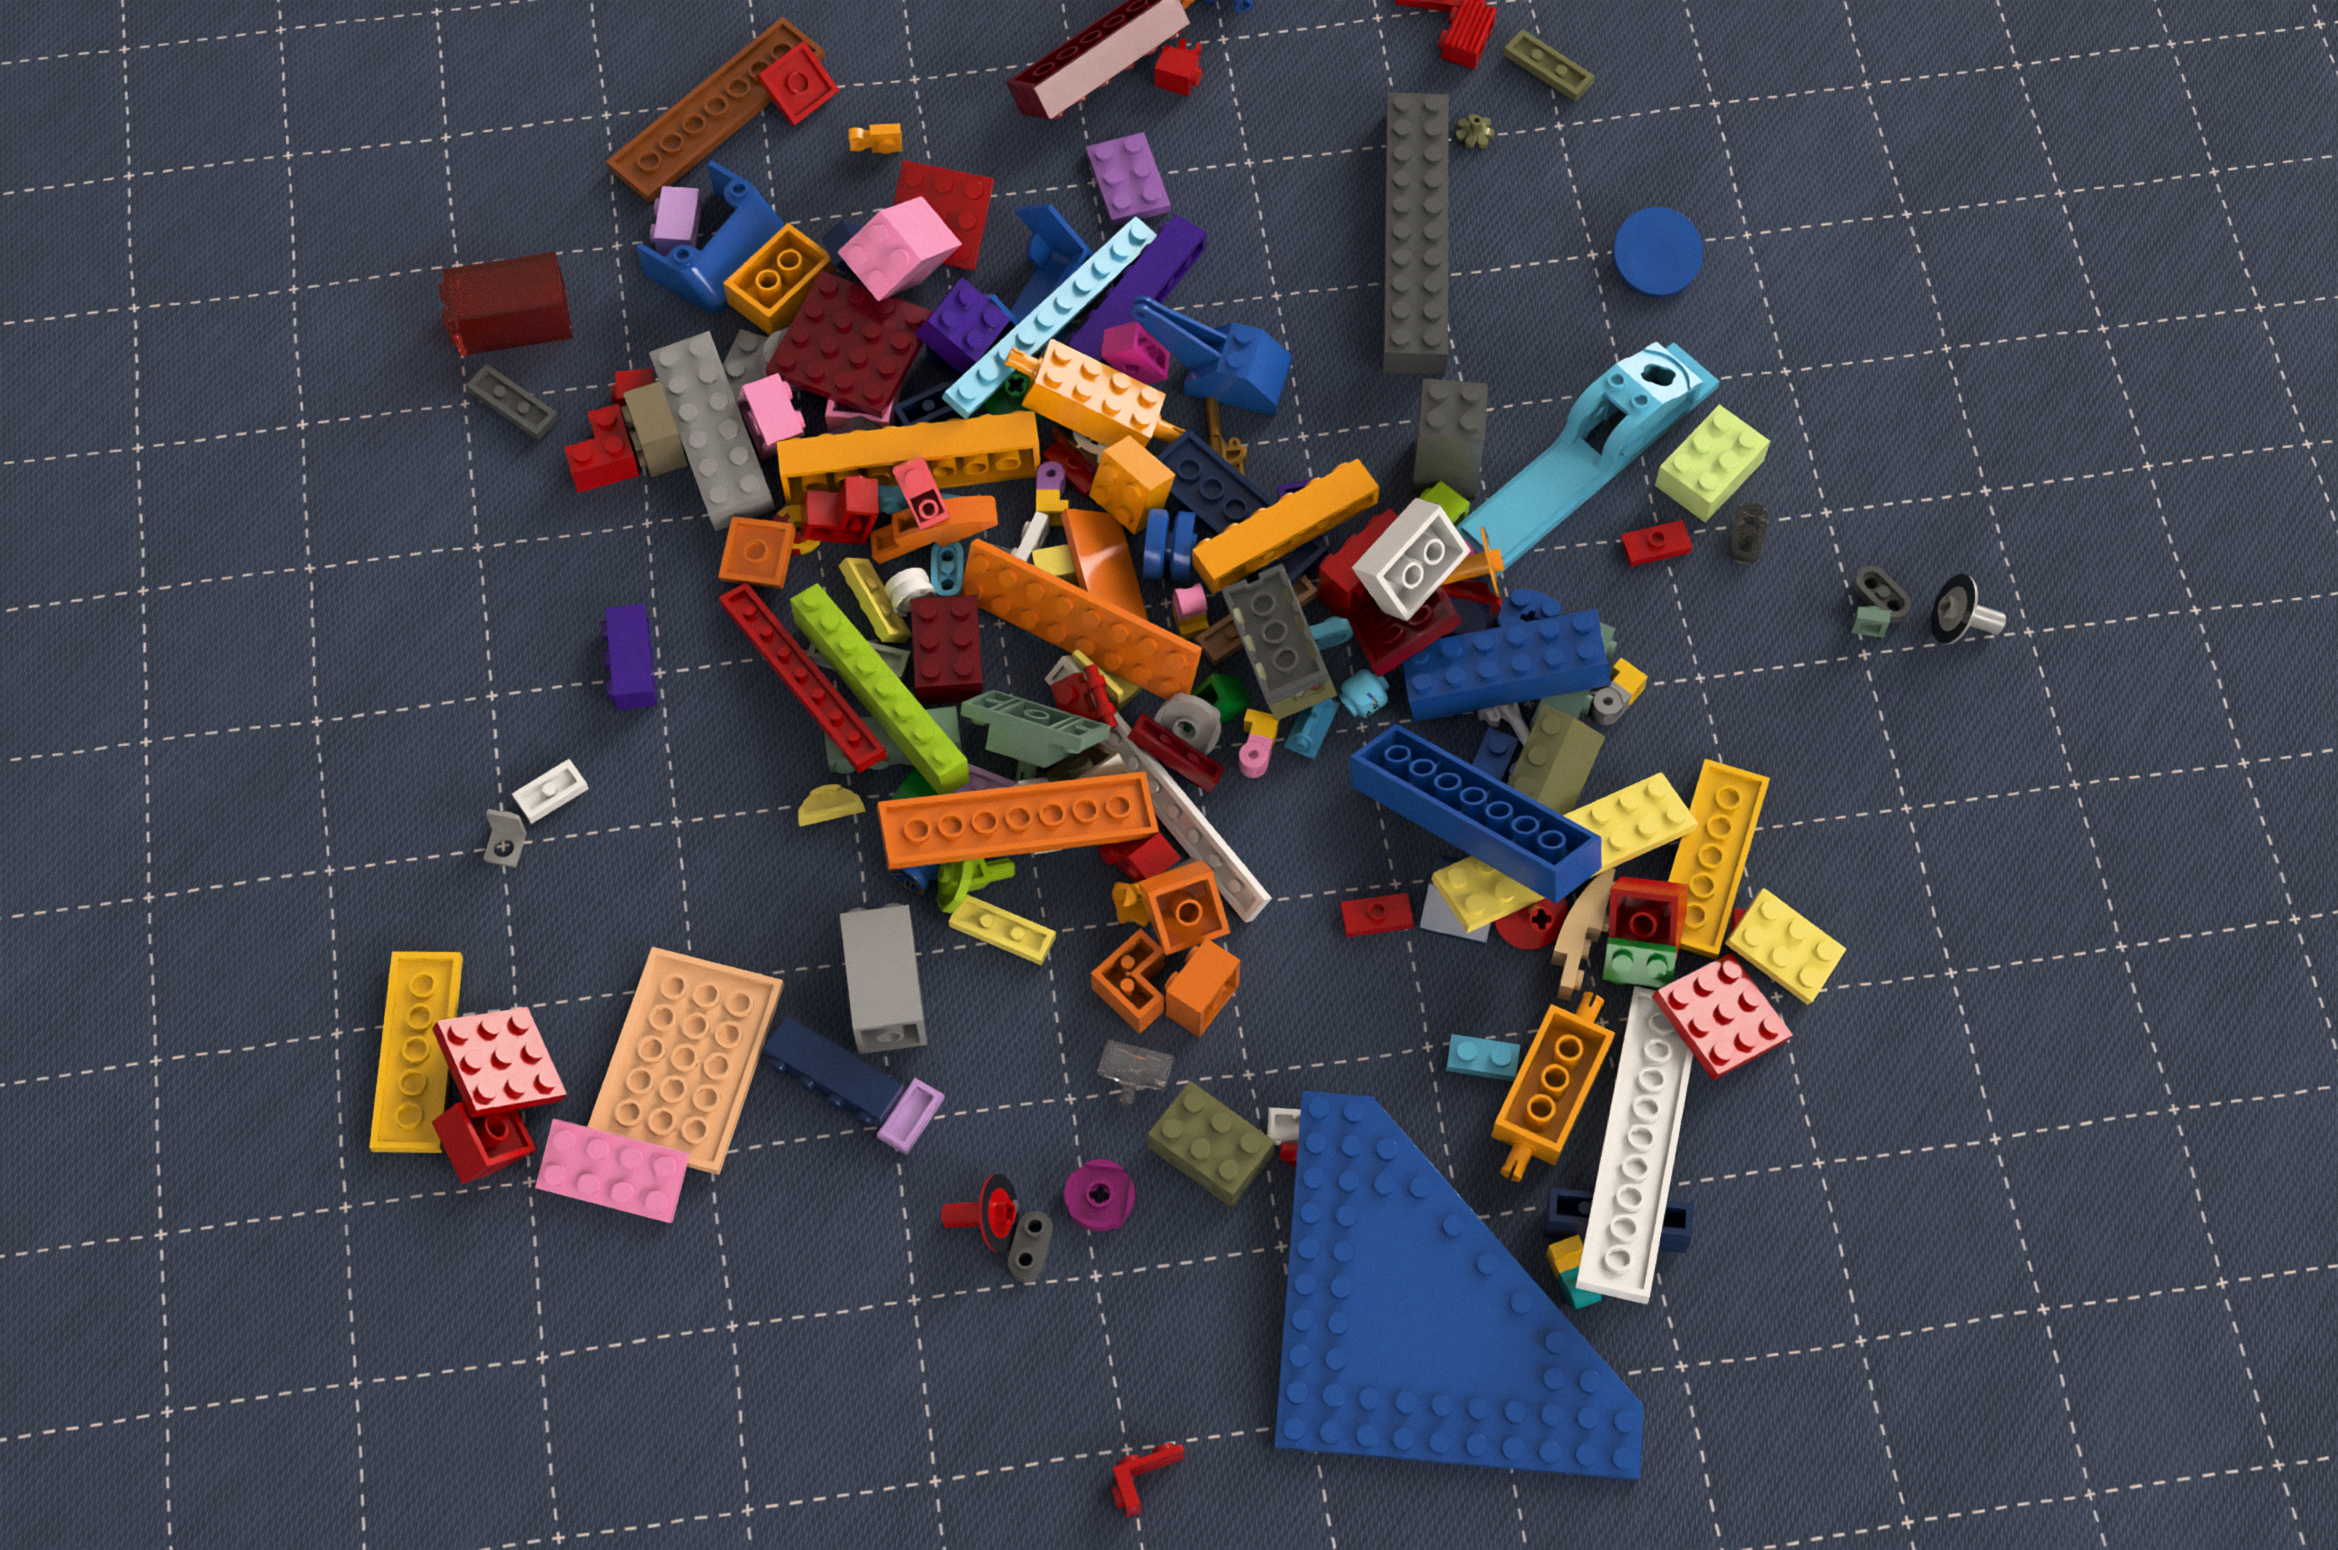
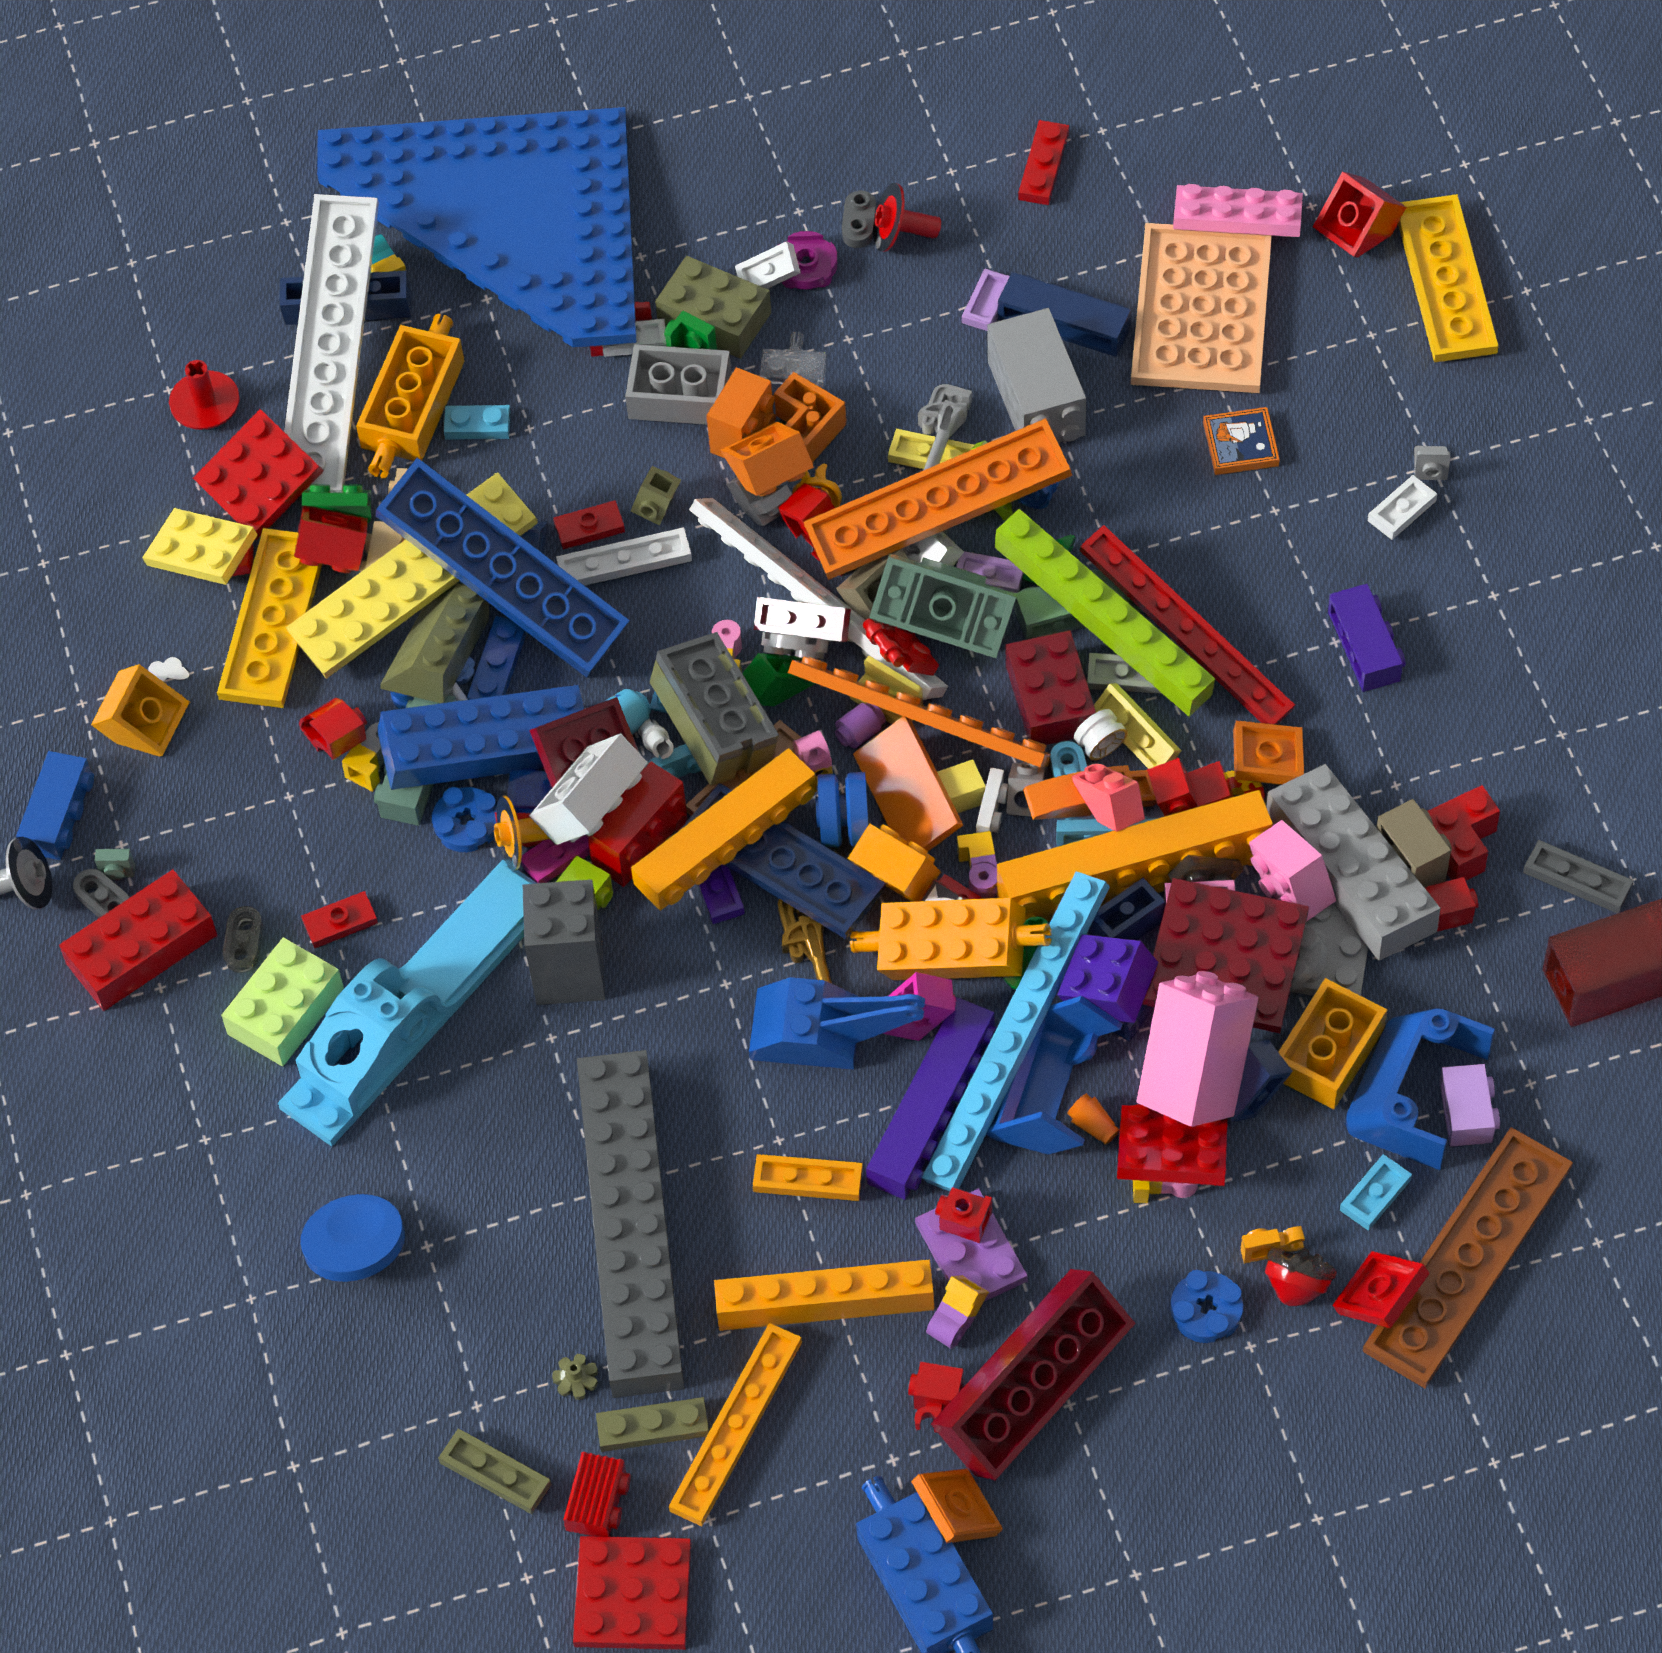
camera: 175 degrees right, 5 degrees down
(499, 1061) = (1364, 263): plate -> none
(688, 898) = (1241, 441): none -> tile
(777, 168) = (1375, 1192): none -> medium azure plate
(808, 1287) = (1043, 162): none -> red plate
(829, 803) = (1138, 534): light yellow plate -> none
(858, 105) = (1298, 1276): none -> hair
(939, 92) = (1206, 1286): none -> blue plate
(991, 961) = (945, 415): none -> light grey piece
(1002, 262) = (1093, 1119): none -> orange cone
(1128, 181) = (968, 1223): none -> red brick
(1130, 1466) = (733, 75): red bracket -> none
(1144, 1174) = (770, 266): none -> white plate
(1153, 119) = (956, 1310): none -> leg
(1239, 1090) = (690, 332): none -> green bracket
(1256, 250) = (807, 1177): none -> light orange plate
(1258, 150) = (824, 1295): none -> light orange brick
(1262, 1045) = (675, 383): none -> light grey brick
(1303, 917) = (655, 495): none -> olive brick
(1338, 650) = (656, 739): none -> white pin
(1345, 864) = (627, 557): none -> white plate
(1346, 72) = (735, 1424): none -> light orange plate
(1415, 82) = (652, 1424): none -> olive plate
(1650, 699) = (334, 727): none -> red brick
(1779, 1131) = (203, 397): none -> red piece
(1826, 828) = (170, 669): none -> white sticker
(1845, 538) = (138, 940): none -> red brick
(1848, 773) = (140, 711): none -> light orange slope
(1929, 688) = (56, 803): none -> blue brick

